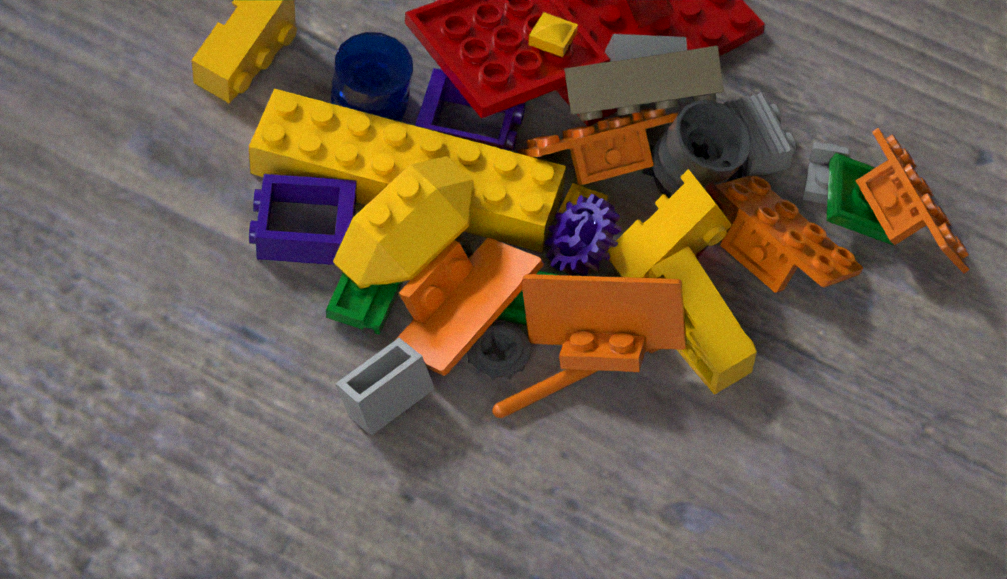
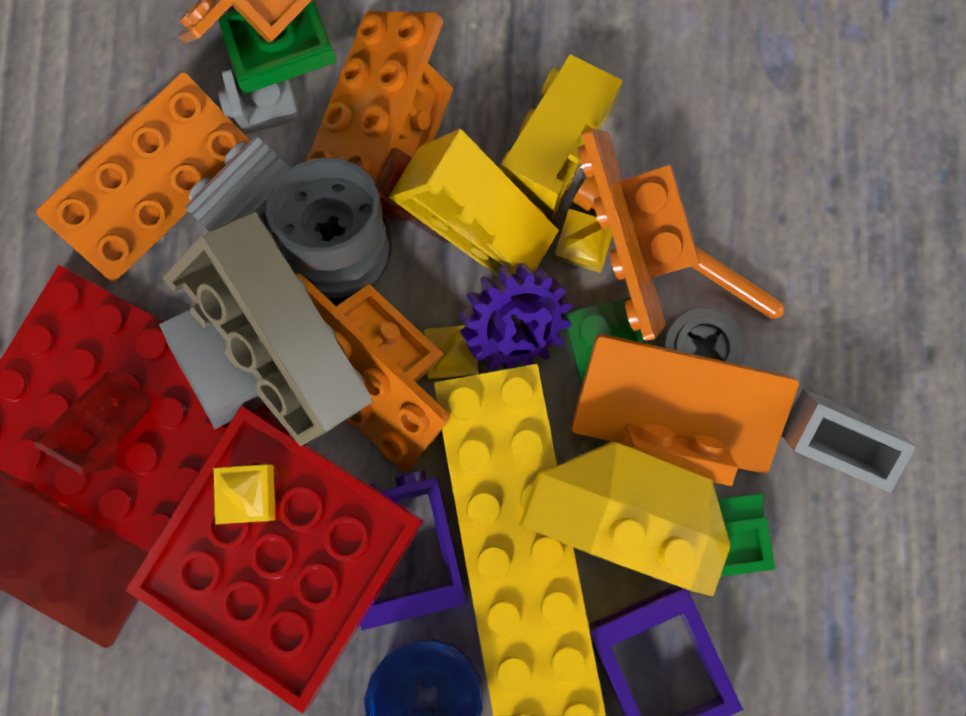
camera: 115 degrees left, 25 degrees up
(803, 85) = (141, 177): none -> orange bracket

